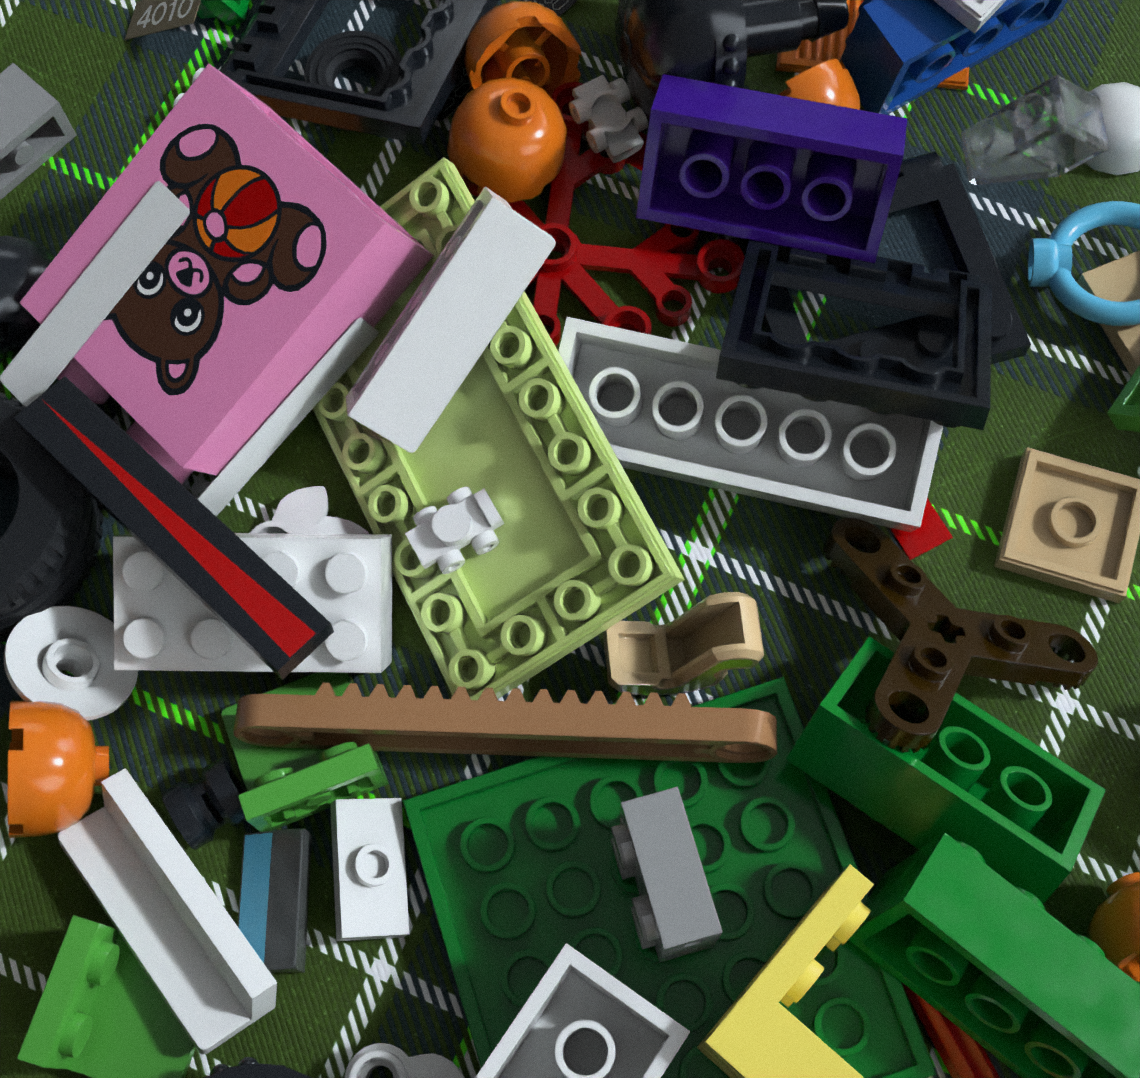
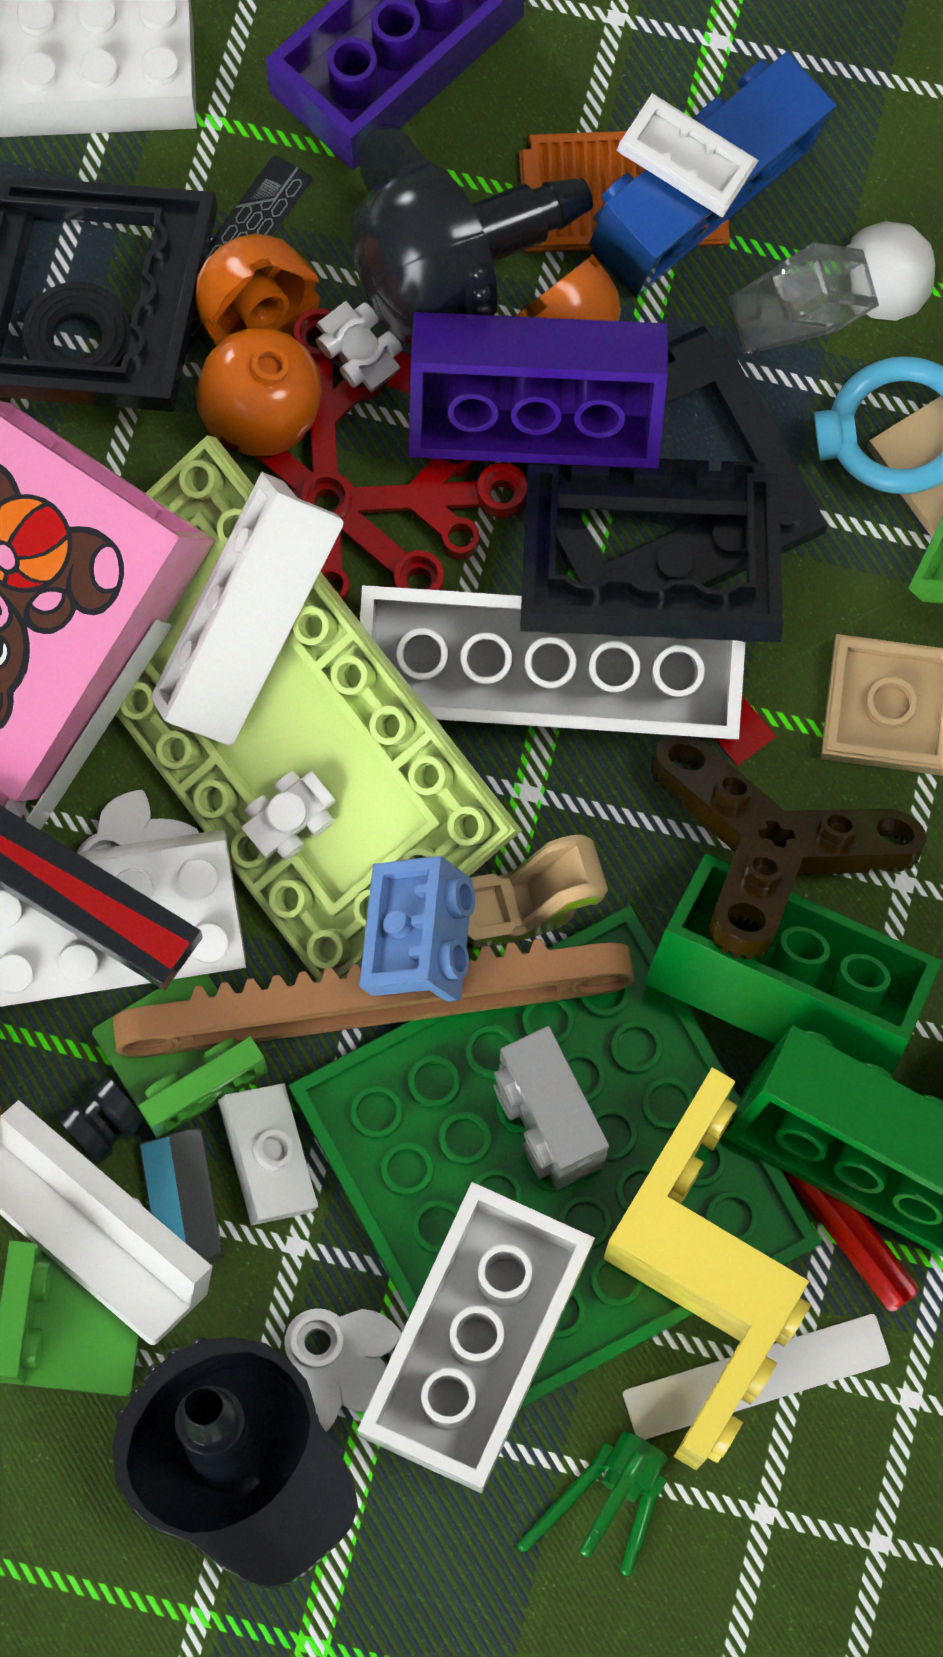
camera: 15 degrees left, 5 degrees up
(558, 661) = (417, 928): none -> medium blue bracket

